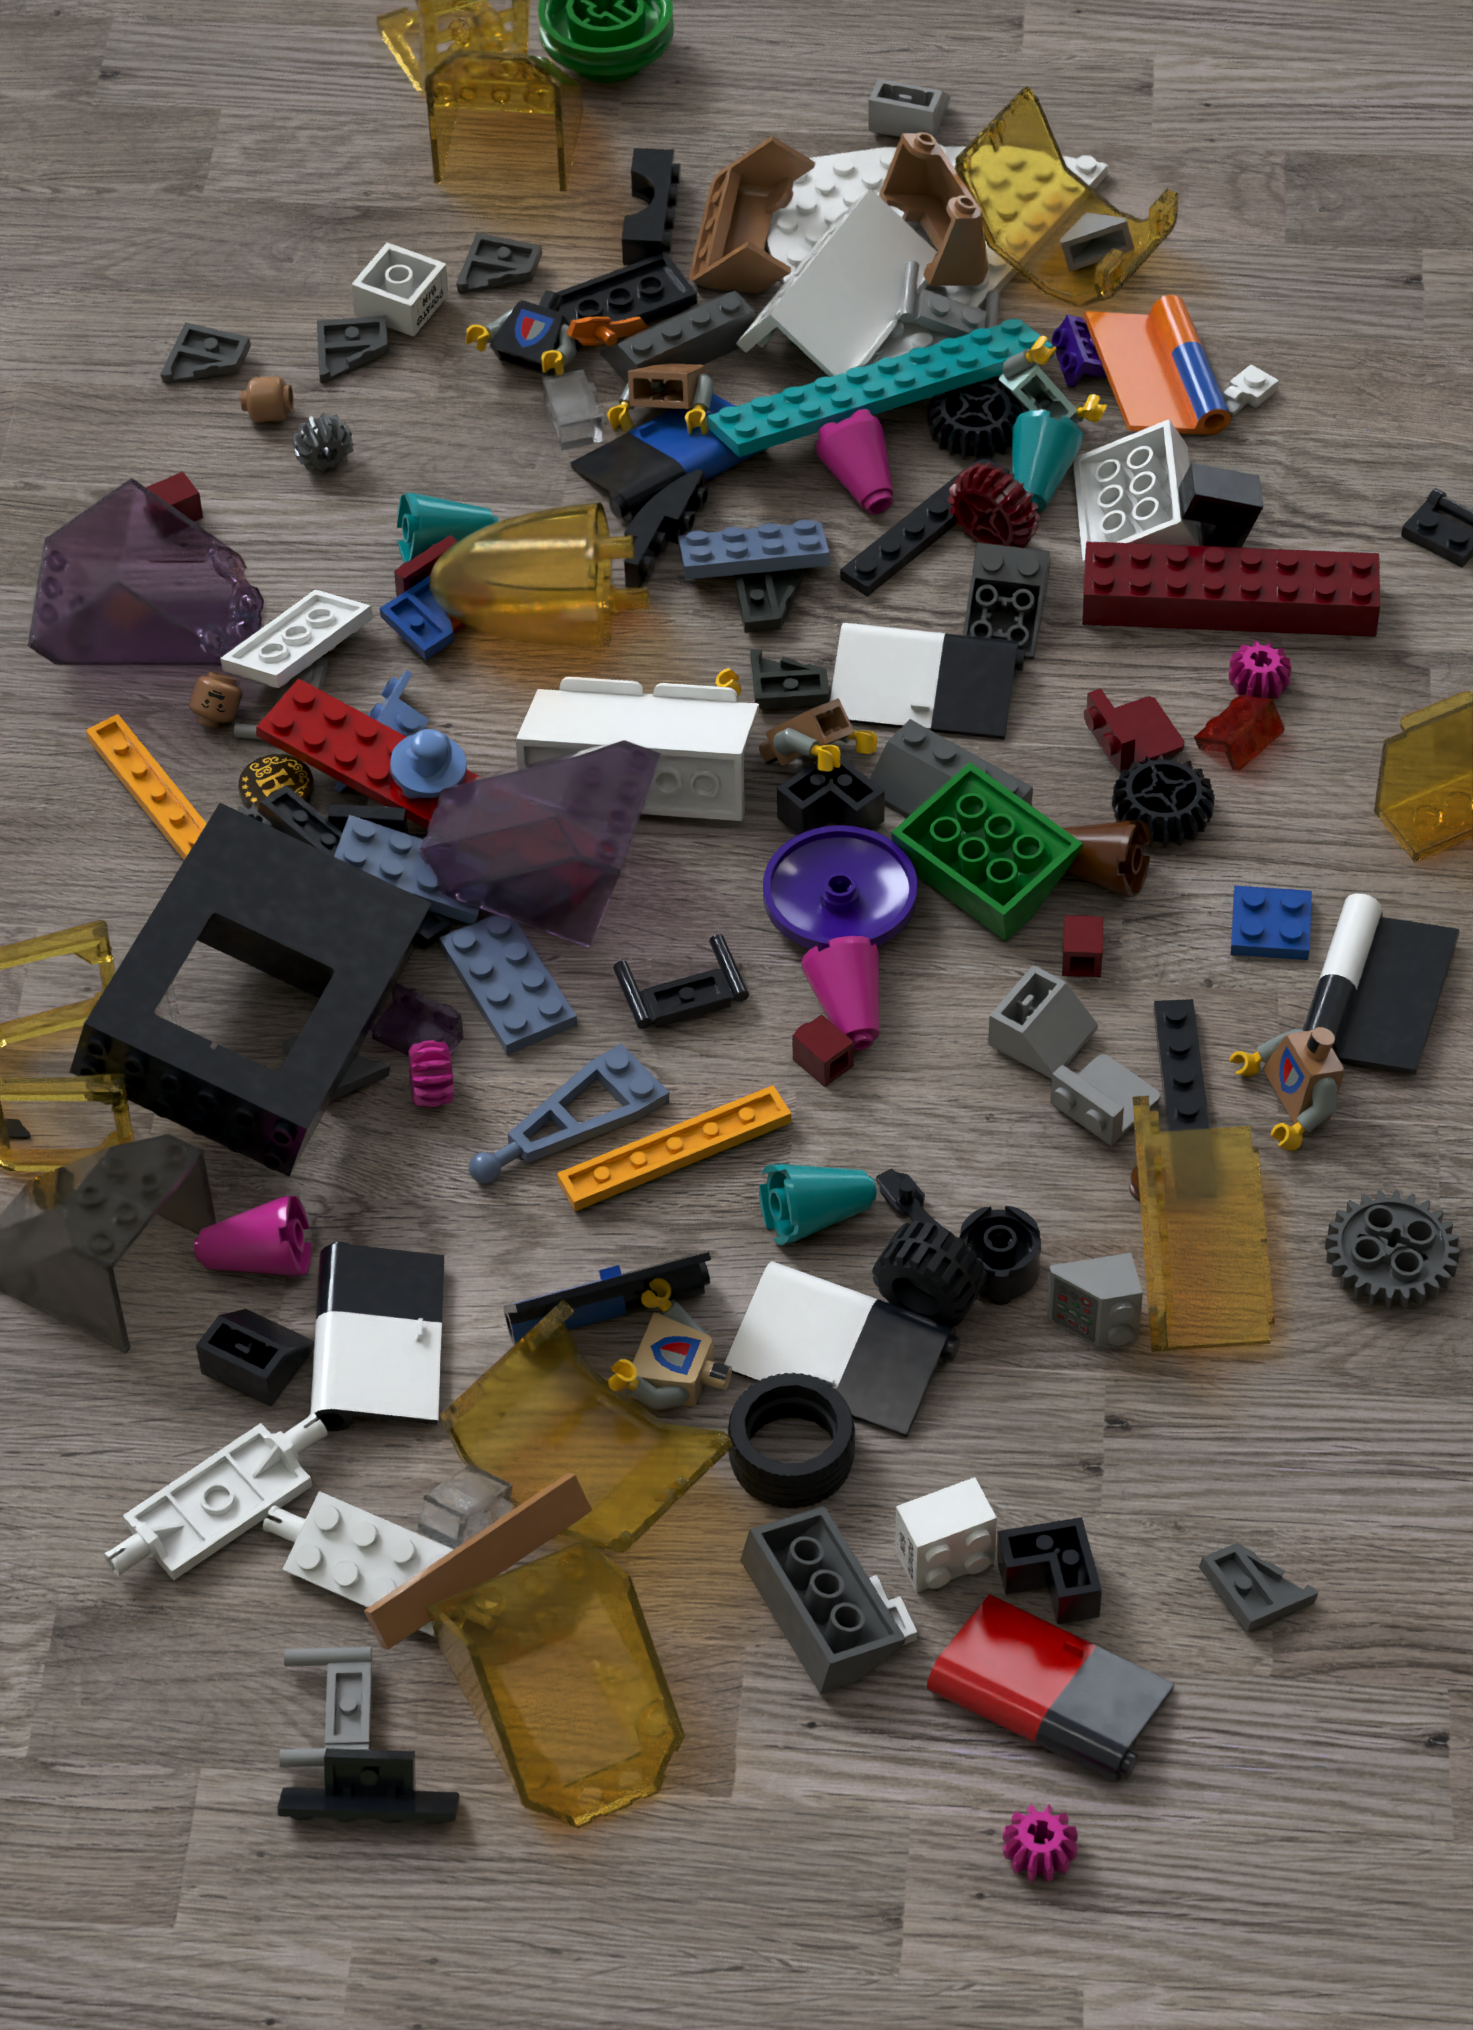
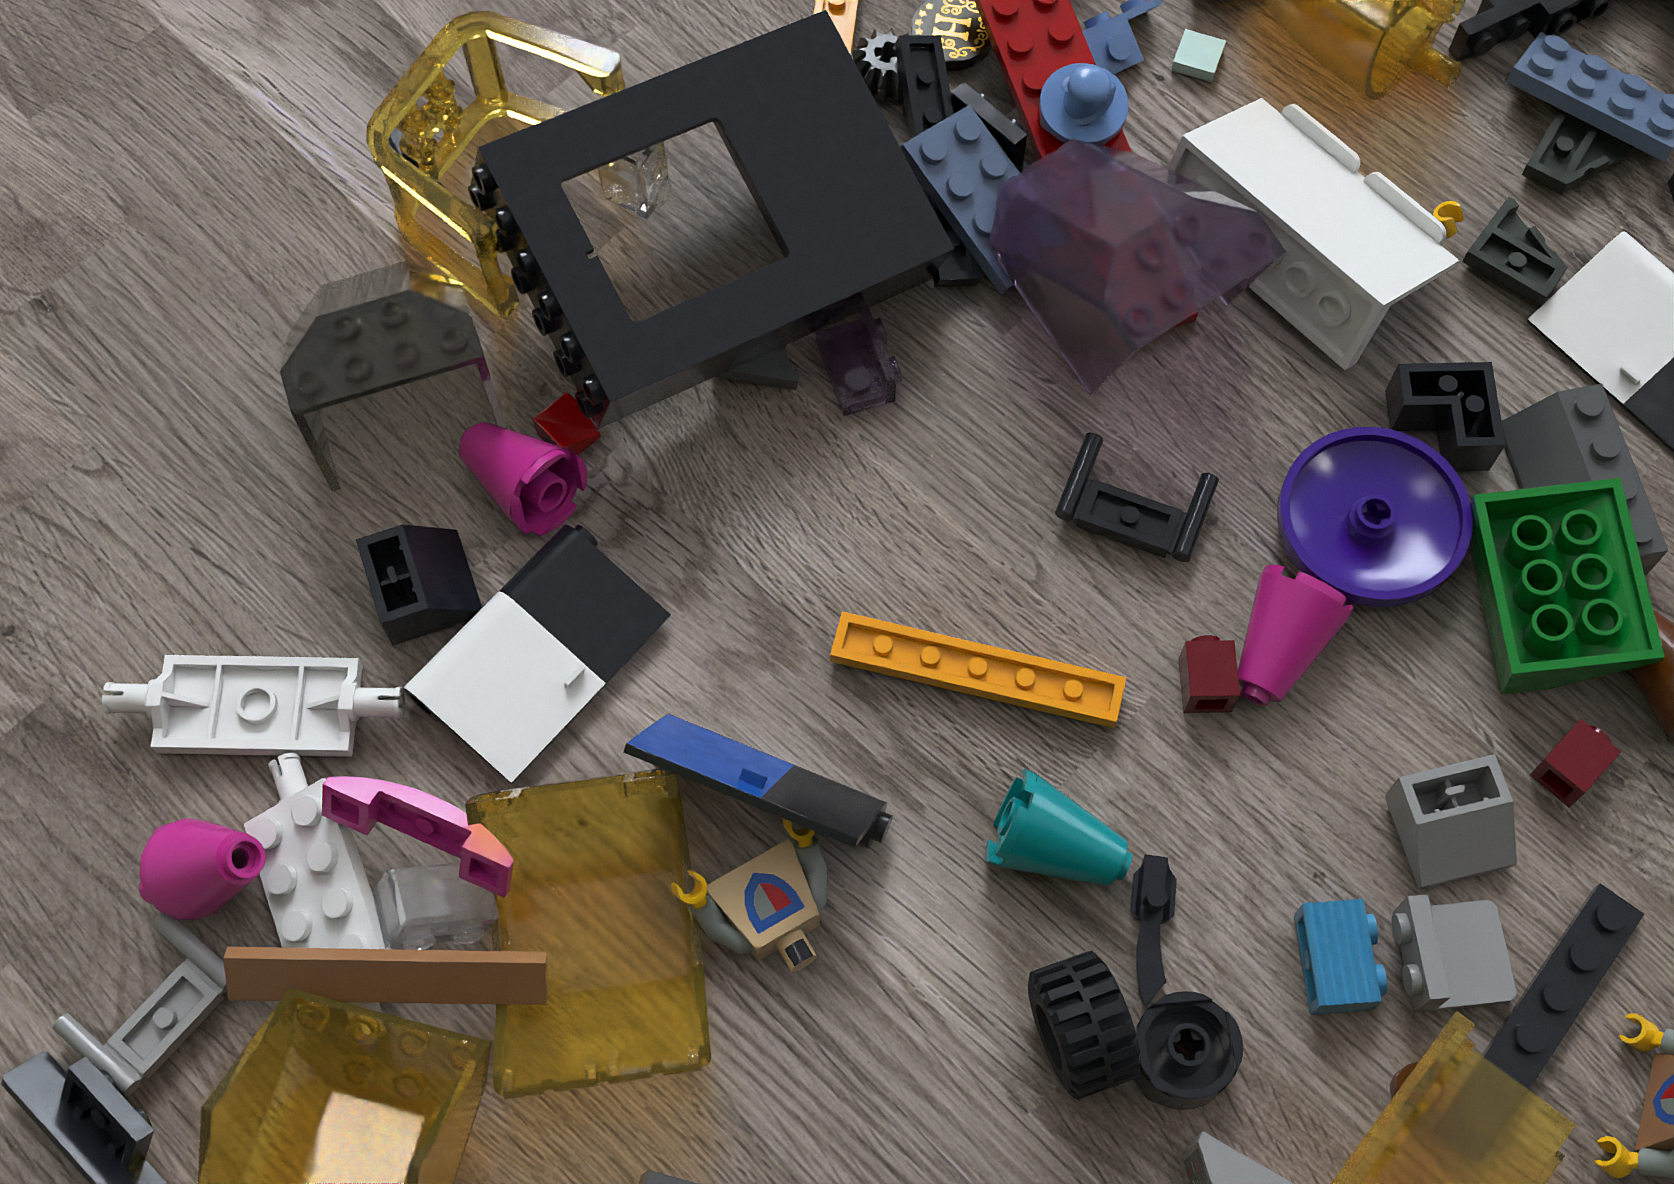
camera: 40 degrees right, 15 degrees up
(253, 1193) = (565, 425): none -> red slope
(294, 1590) = (197, 867): none -> dark pink cone
(420, 1457) = (364, 801): none -> dark pink slope
(430, 1074) = (817, 419): dark pink gear -> none
(462, 693) = (1198, 55): none -> light aqua tile
(508, 982) = (980, 377): sand blue plate -> none
(618, 1073) = (998, 560): sand blue plate -> none
(791, 1397) = (792, 1023): black tyre -> none
(811, 735) = (1492, 328): torso -> none
(856, 1343) = (942, 1021): door -> none
(1041, 1145) = (1339, 957): none -> dark azure brick

